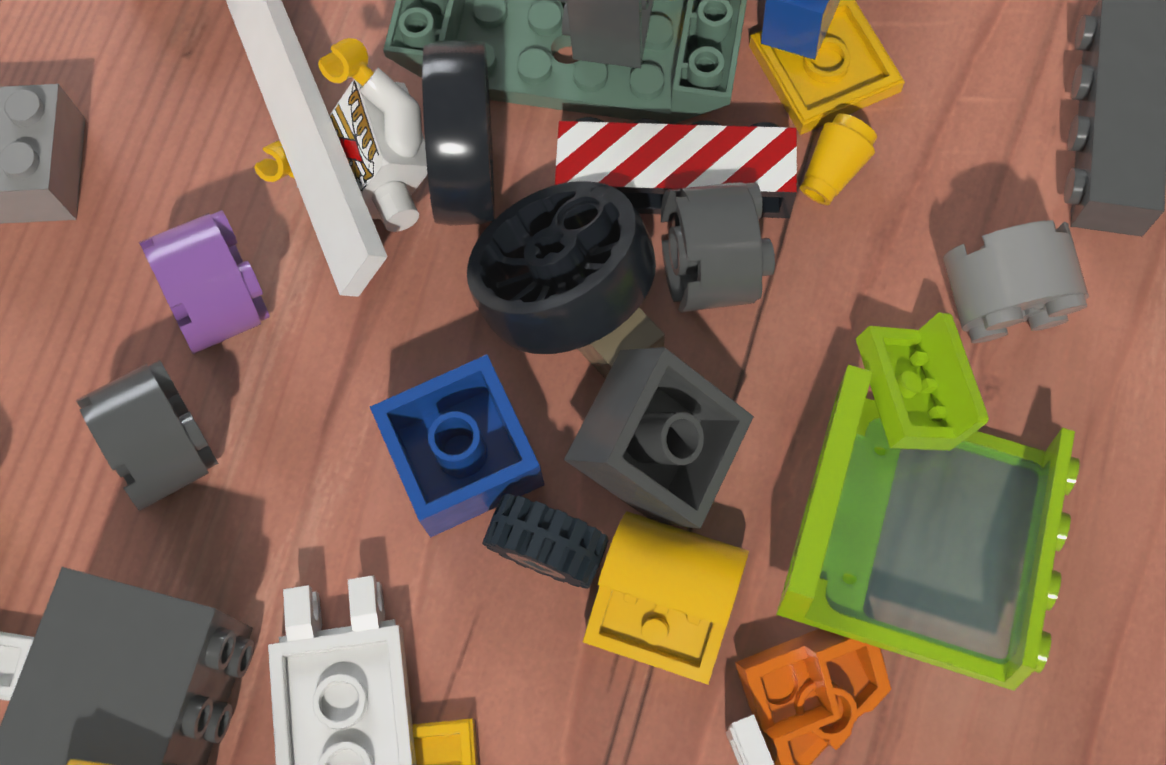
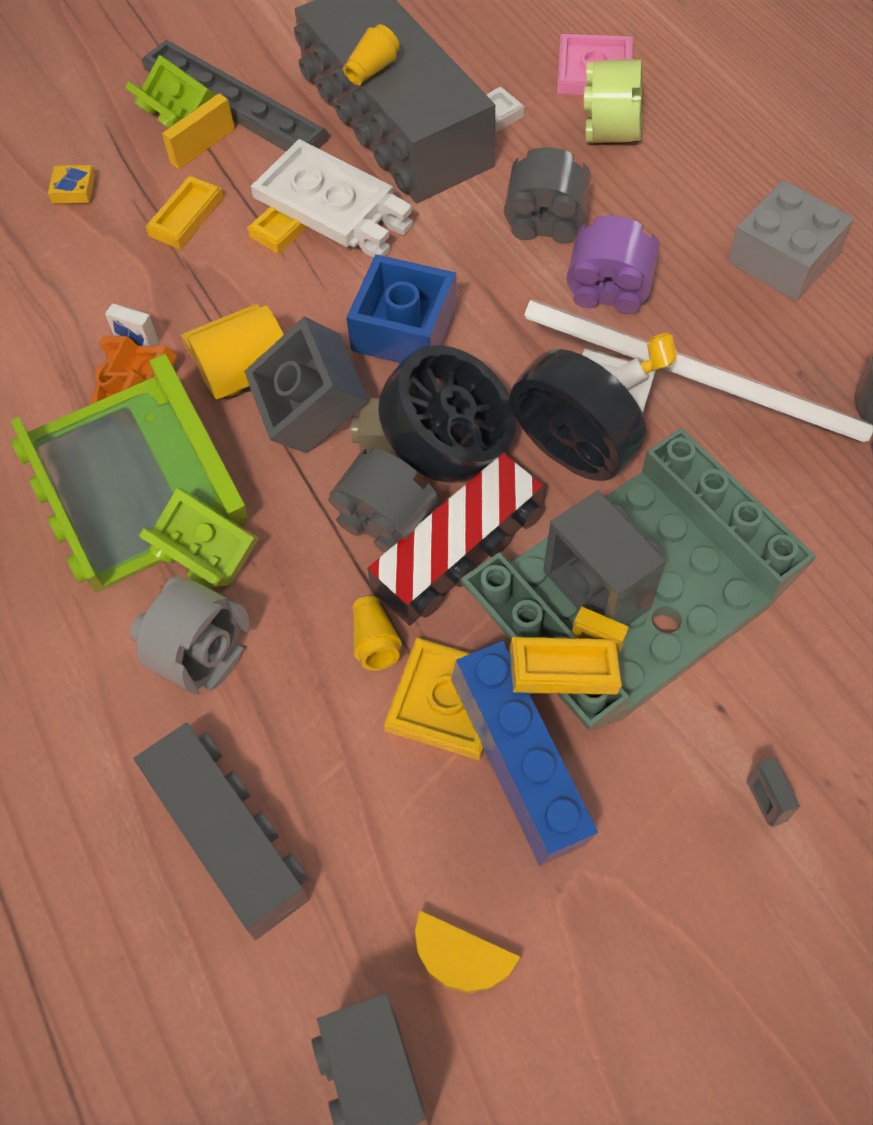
camera: 130 degrees right, 10 degrees down
(546, 540) = (316, 297): black wheel -> none

